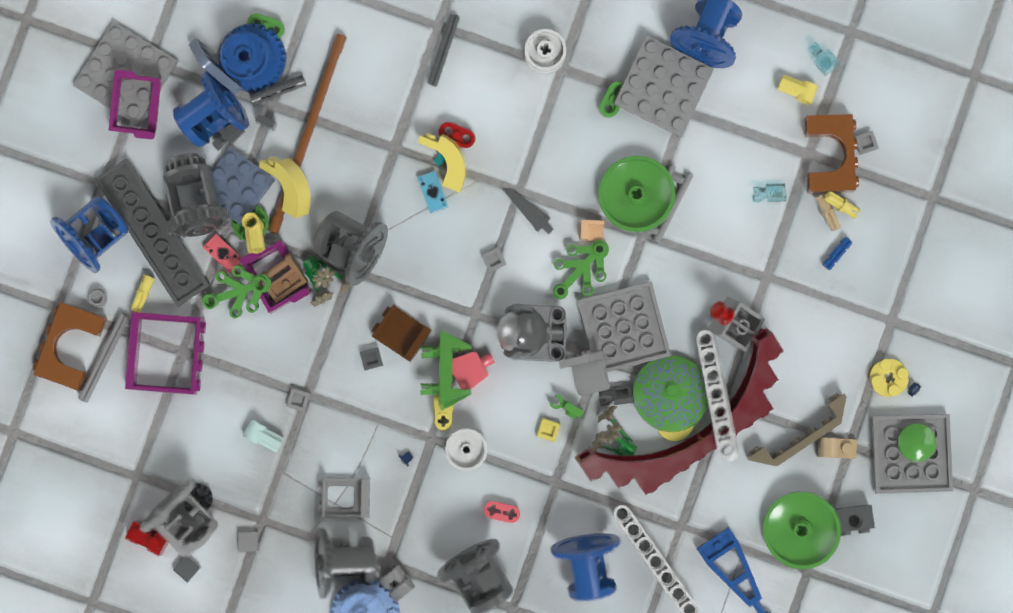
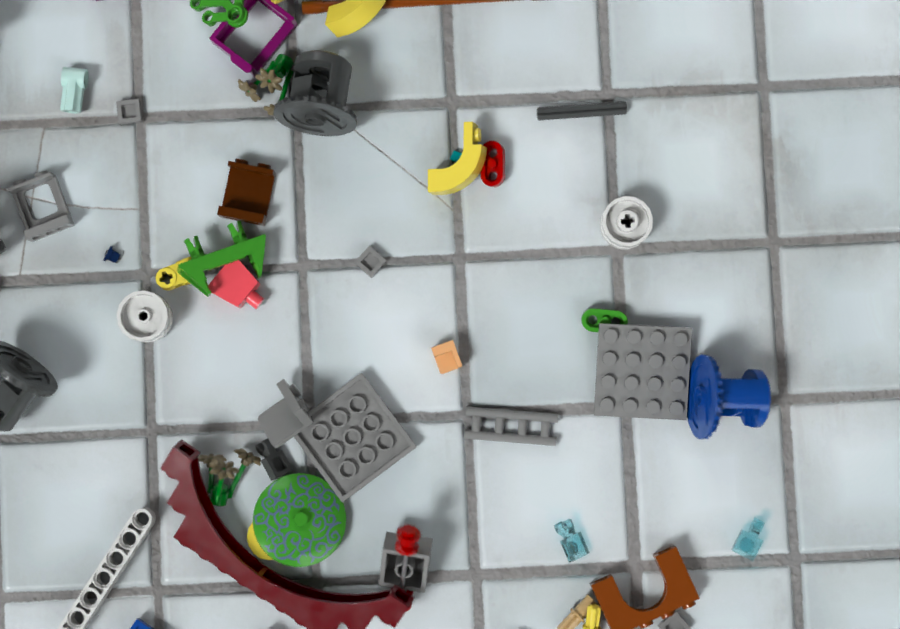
camera: 75 degrees right, 0 degrees up
(288, 282) = (251, 45): medium nougat plate -> none
(371, 358) = (206, 172): dark grey tile -> none
(432, 192) = (418, 163): medium azure tile -> none
(503, 507) = (99, 383): coral beam -> none
(532, 214) = (438, 286): dark grey bar -> none
(532, 332) = (303, 337): dark grey piece -> none
(548, 430) = (205, 399): light yellow tile -> none
(571, 410) = (236, 416): bright green plate -> none
(582, 266) = (402, 363): bright green plant -> none
(588, 564) = (75, 498): blue piece -> none
(637, 194) = (507, 390): bright green dish -> none
(720, 403) = (311, 582): white beam -> none
(801, 90) = (702, 532): light yellow piece -> none

